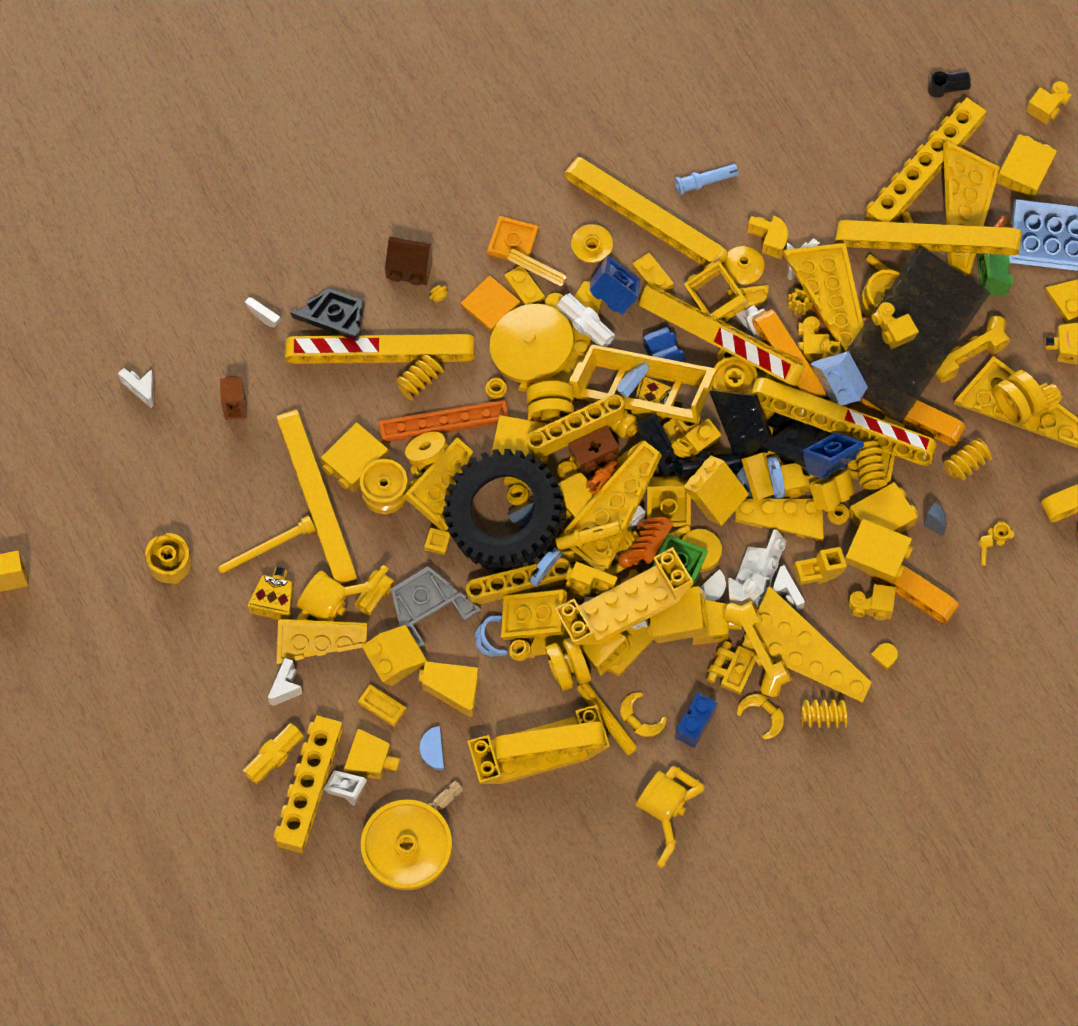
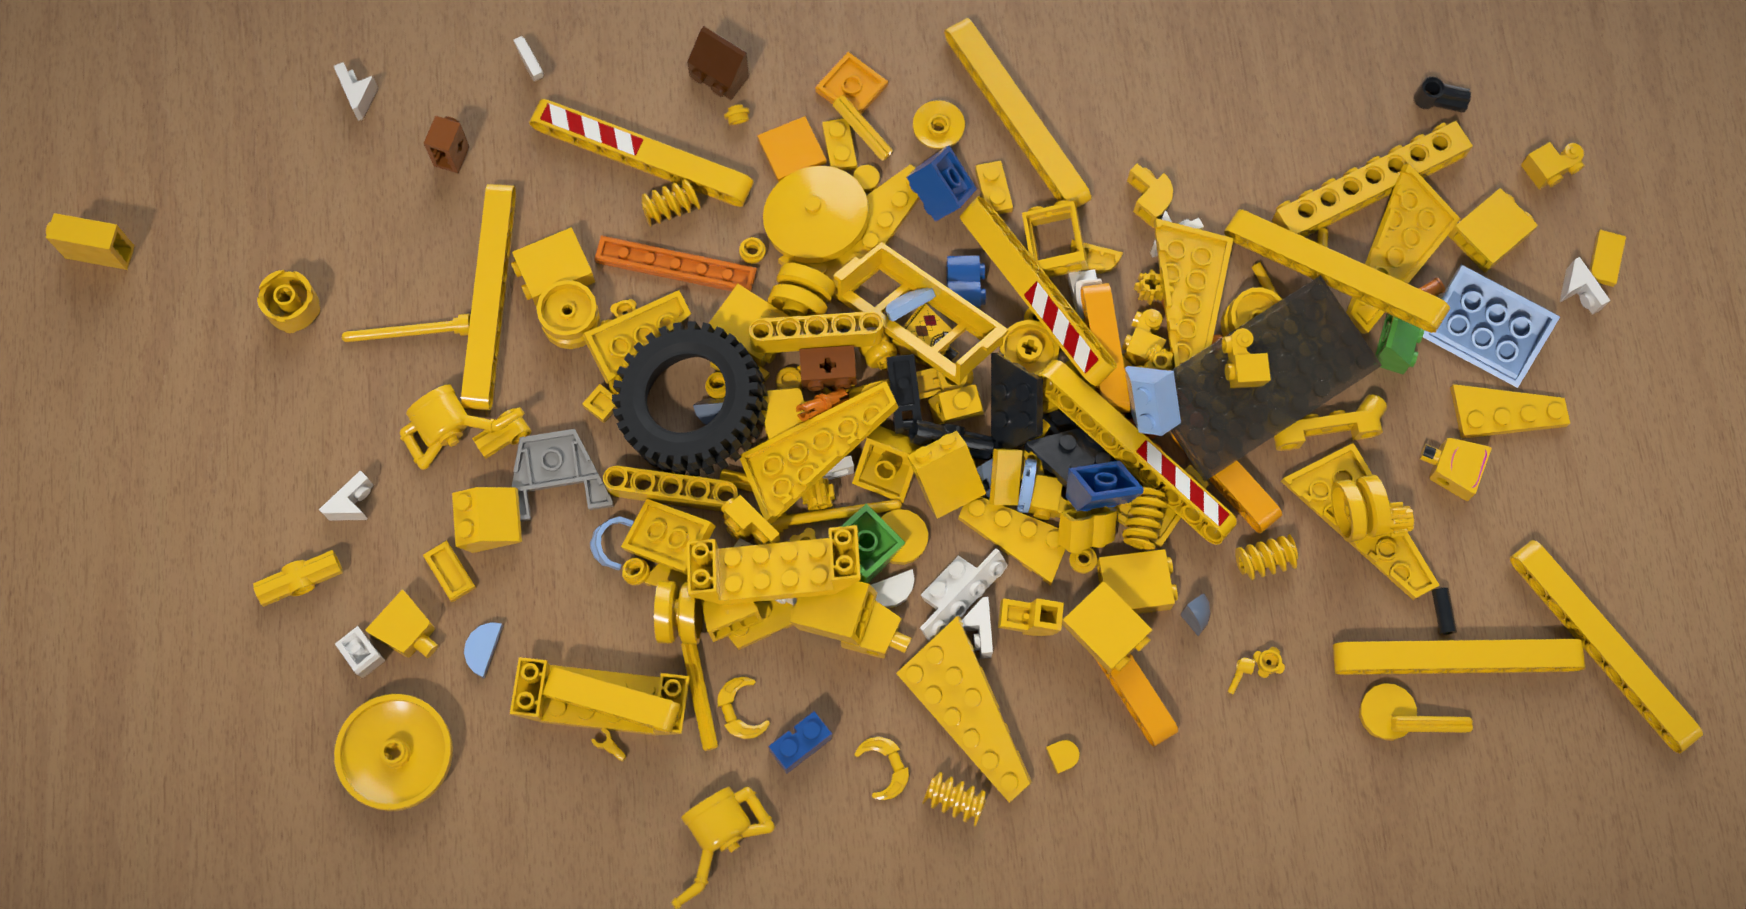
camera: 20 degrees right, 5 degrees up
(273, 596) = (386, 392): yellow torso -> none
(297, 839) = (319, 647): yellow brick -> none
(310, 638) = (402, 459): yellow wing -> none
(334, 313) = (607, 91): black wing -> none
(426, 448) = (637, 289): yellow tile -> none
(446, 796) = (468, 712): tan axle -> none
(451, 684) = (538, 580): yellow slope -> none
(545, 566) = (706, 483): light blue tile -> none
(558, 779) = (610, 746): none -> yellow piece
(580, 538) = (764, 468): yellow pin -> none
(585, 320) = (887, 212): white piece -> none
(652, 533) = (848, 498): orange gear -> none
(682, 448) = (928, 407): yellow plate -> none
(696, 180) = (1093, 98): light blue pin -> none
(738, 671) = (879, 701): yellow plate -> none
(744, 273) = (1103, 228): yellow dish -> none
(747, 617) = (913, 645): yellow plate -> none
(749, 591) = (924, 613): white slope -> none
(879, 605) = (1081, 691): yellow brick -> none

